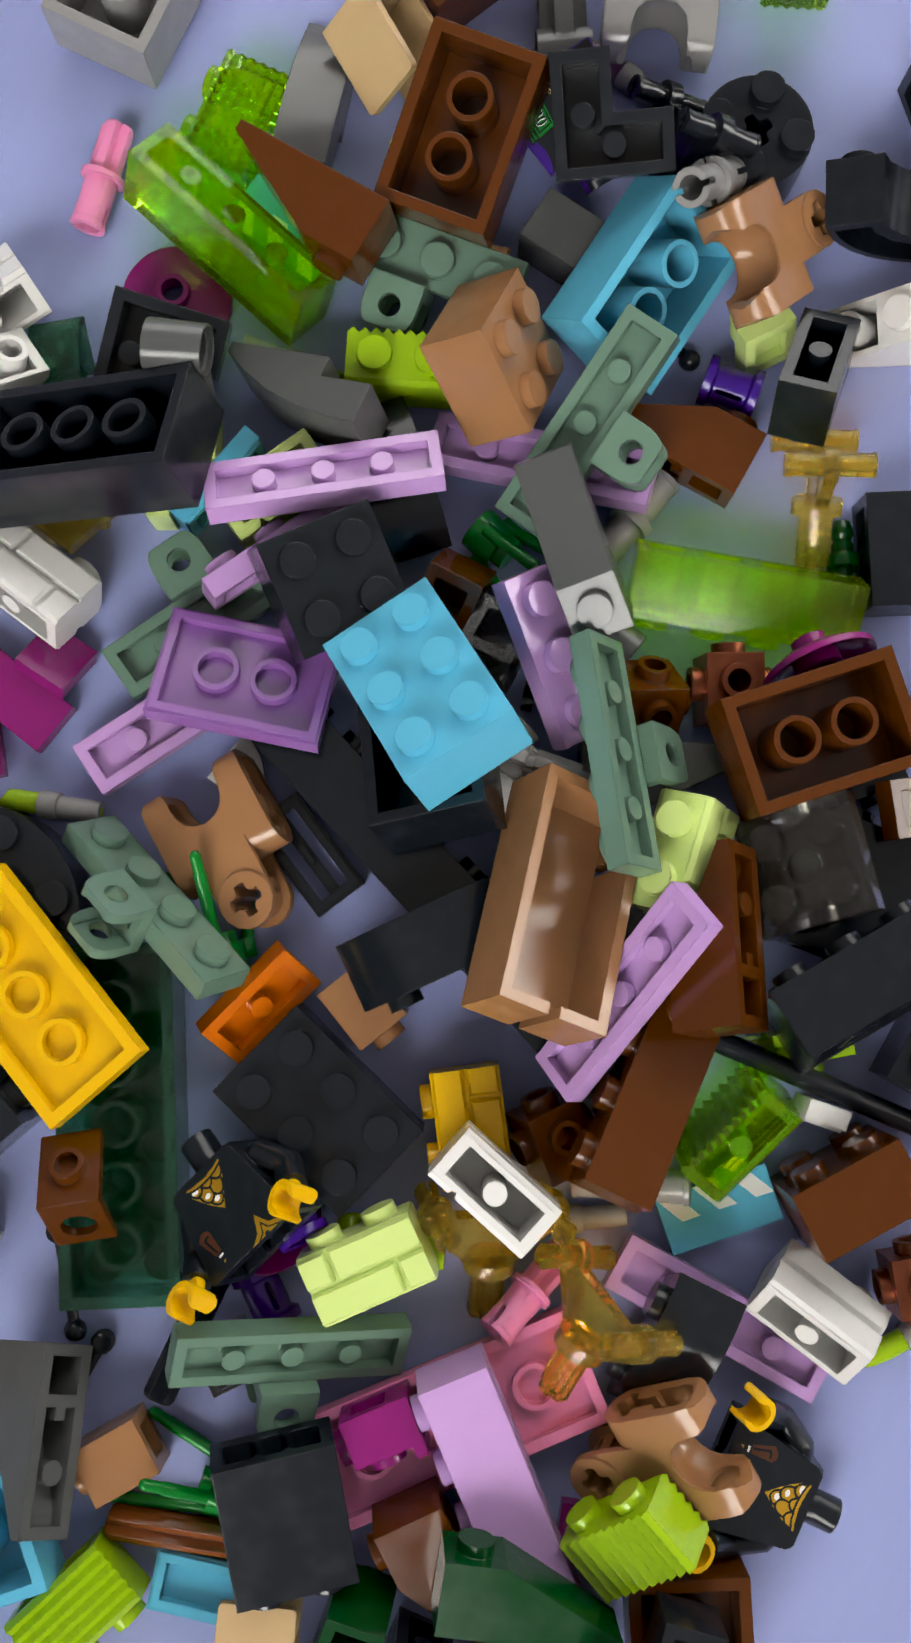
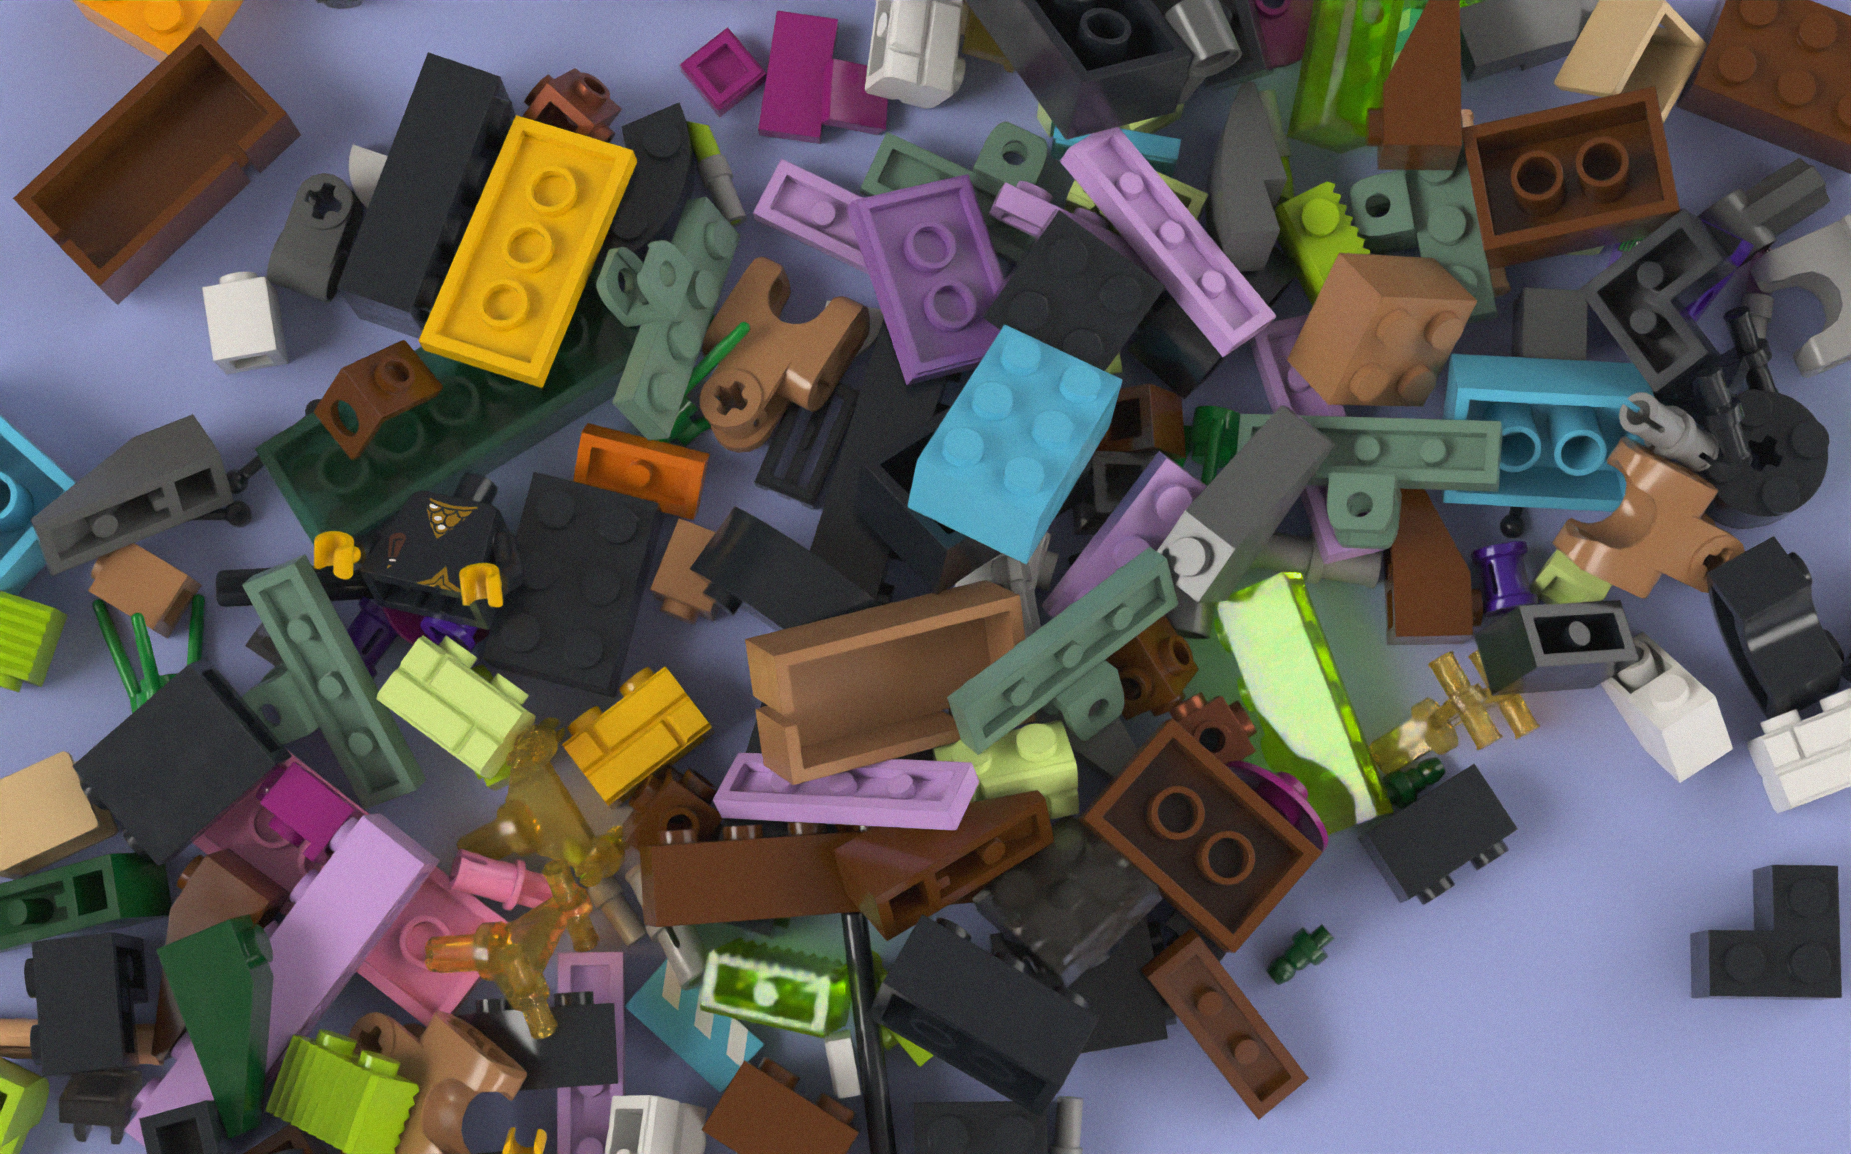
camera: 60 degrees right, 5 degrees down
(165, 1530) = (95, 670): dark orange axle -> none
(189, 1585) = (58, 719): medium azure tile -> none
(495, 1189) = (594, 777): white brick -> none

